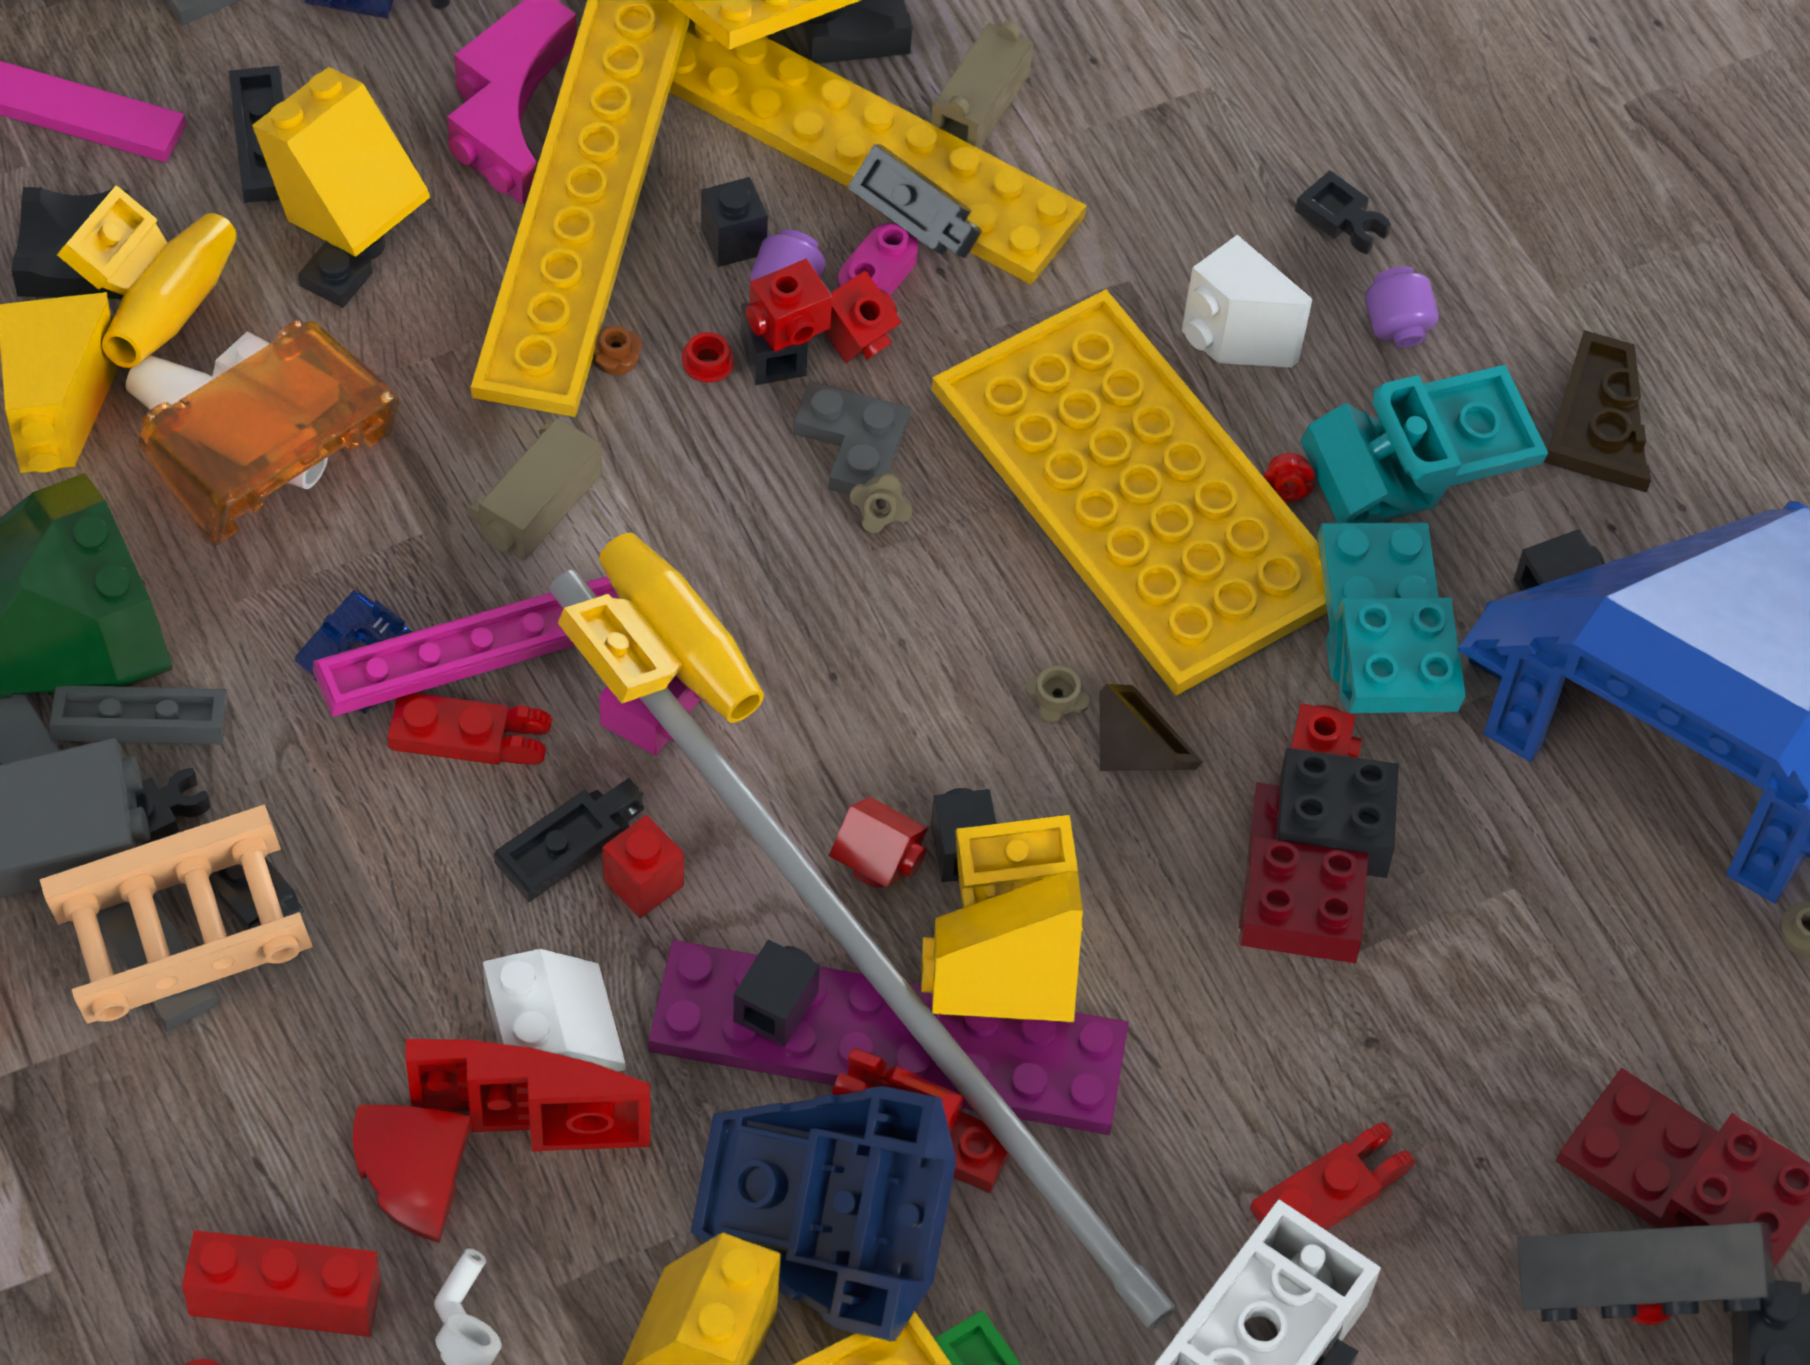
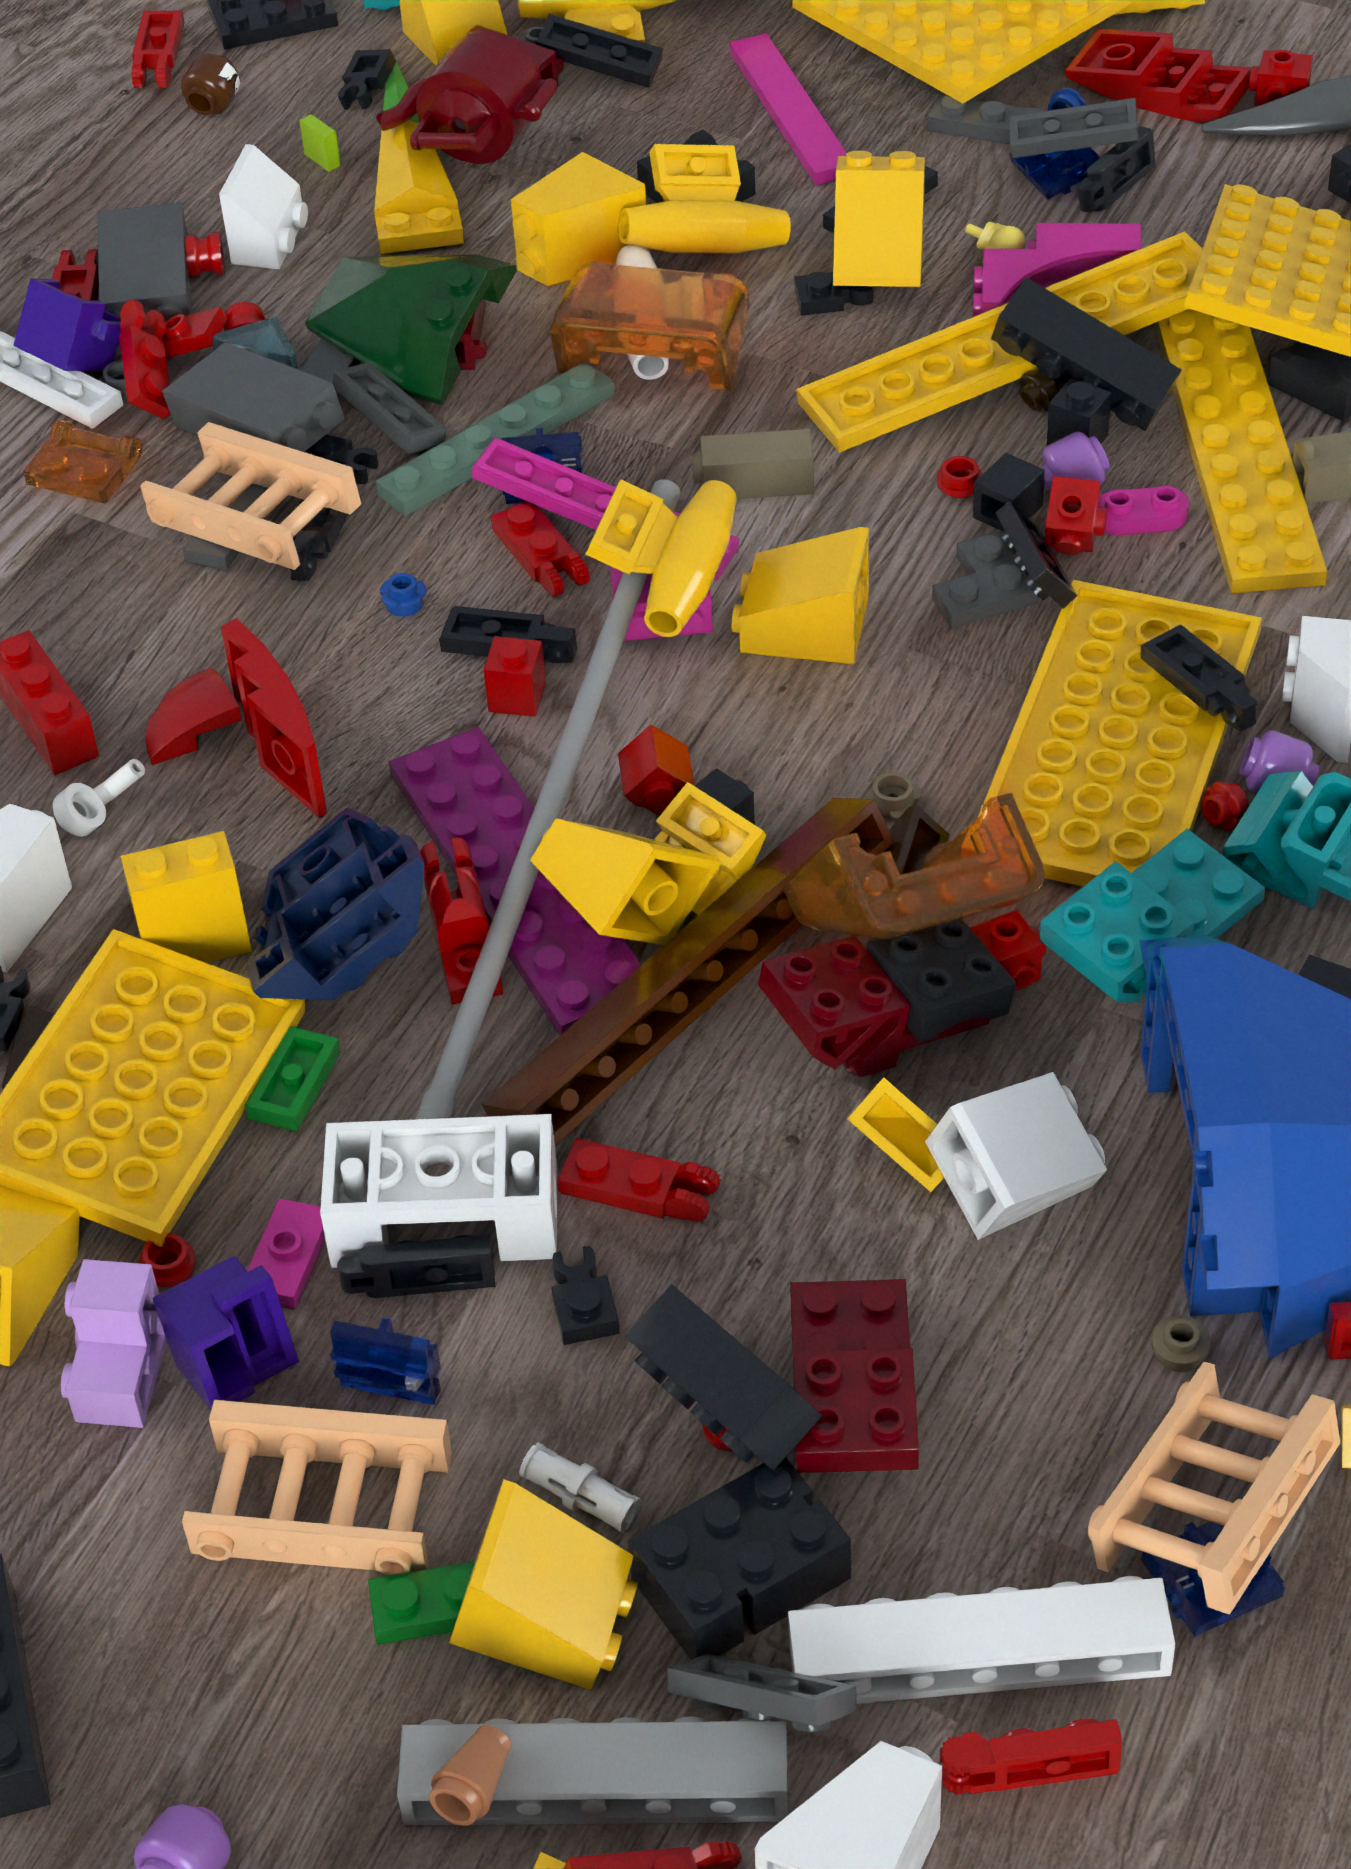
camera: 60 degrees right, 10 degrees down
(267, 661) = (452, 461): none -> sand green plate
(419, 893) = (403, 594): none -> blue plate
(425, 96) = (997, 236): none -> light yellow piece
(553, 1006) = (359, 704): white slope -> none
(617, 360) = (914, 437): dark orange plate -> none
(656, 219) = (1037, 390): none -> dark brown plate
(680, 156) = (1078, 346): none -> black brick
(776, 992) = (473, 781): black brick -> none
(777, 573) = (806, 599): none -> yellow slope
(789, 305) = (1020, 462): red brick -> none
(881, 487) = (941, 618): dark tan plate -> none
(883, 382) = (1034, 556): none -> black plate
(915, 202) = (1203, 482): hinge -> none
(1151, 991) = (680, 978): none -> reddish brown brick
(1152, 381) = (1201, 676): none -> black hinge
(1257, 736) = (867, 897): none -> clear orange windscreen
(1282, 409) = (1276, 754): none -> medium lavender head
(1433, 1318) = (583, 1300): none -> black plate
(1465, 957) = (899, 1131): none -> yellow slope
(1566, 901) = (1015, 1152): none -> white slope

